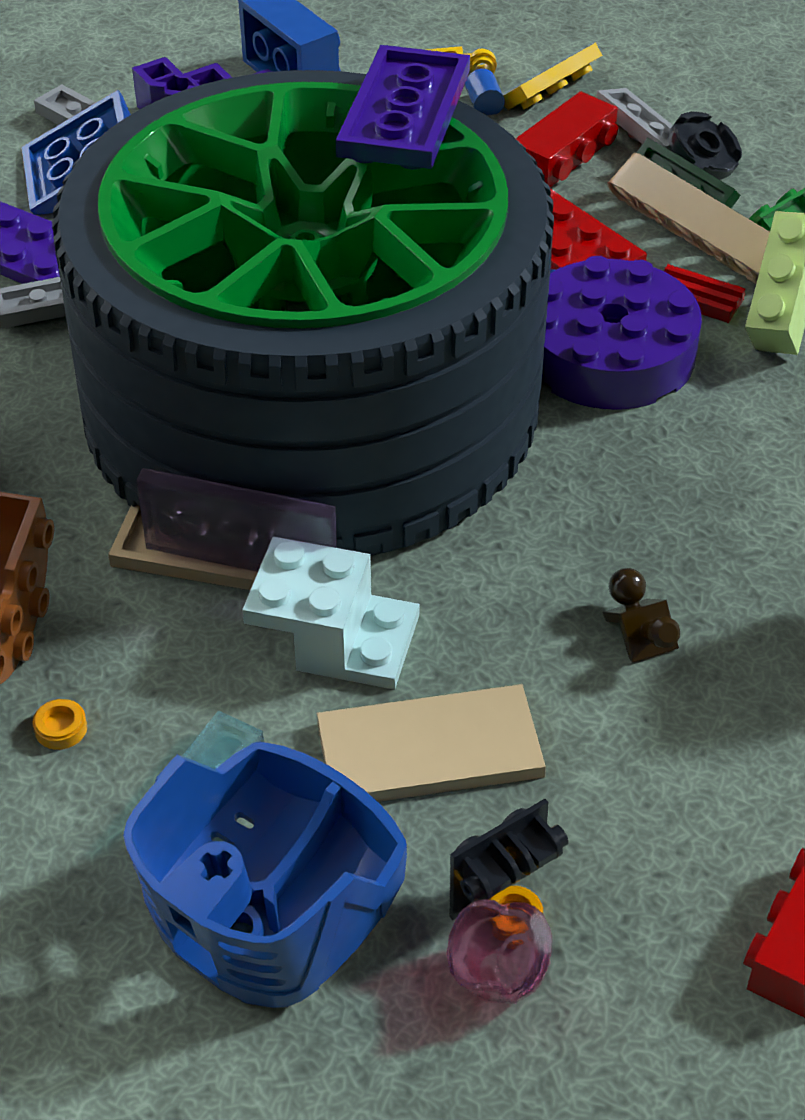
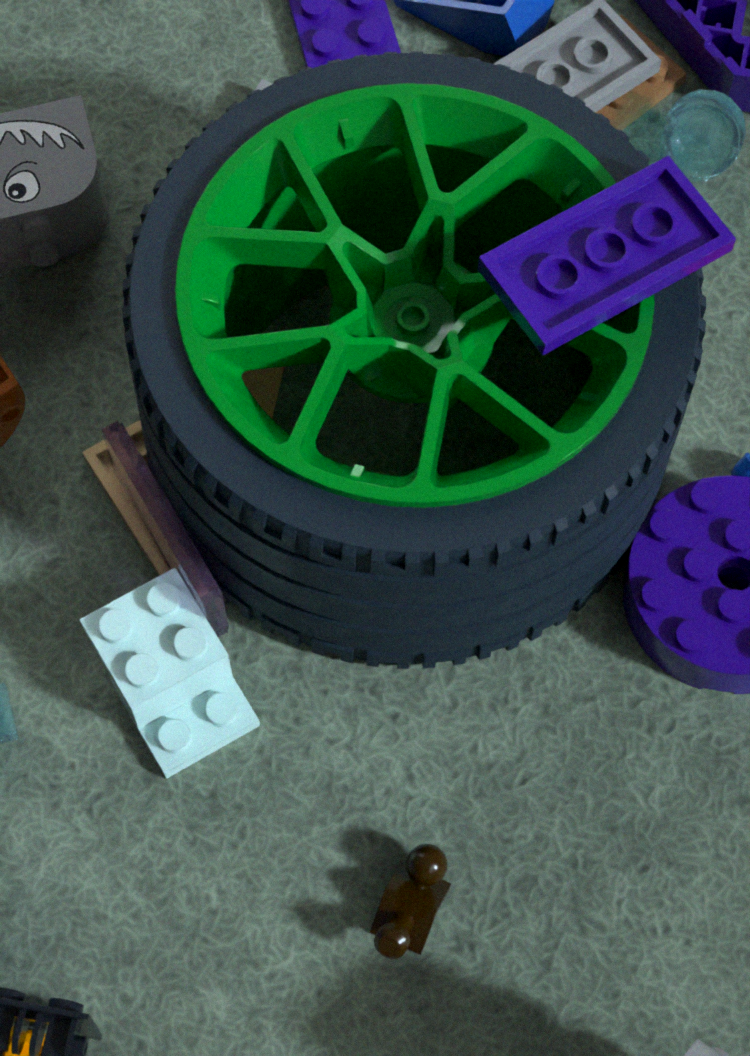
camera: 45 degrees right, 20 degrees up
(434, 743) = (131, 857): tan tile -> none

